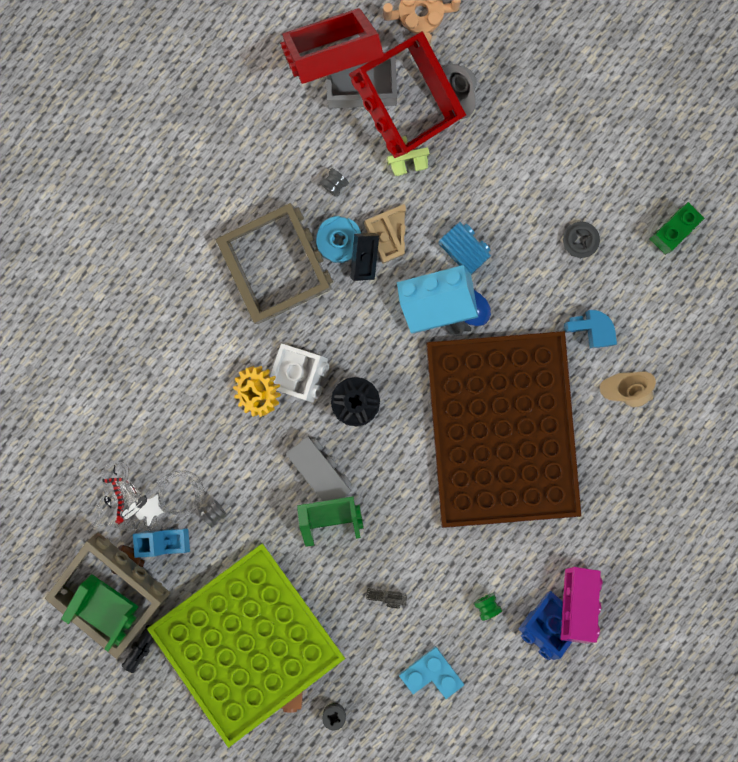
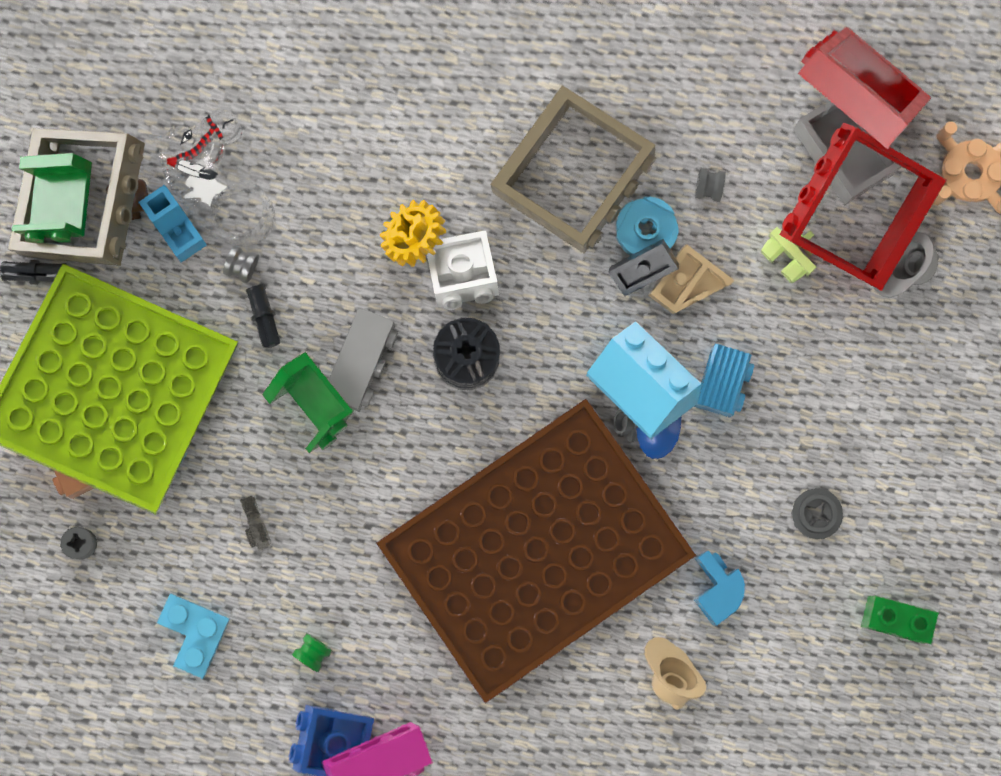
camera: 55 degrees right, 5 degrees down
(254, 517) = (263, 316): none -> black axle

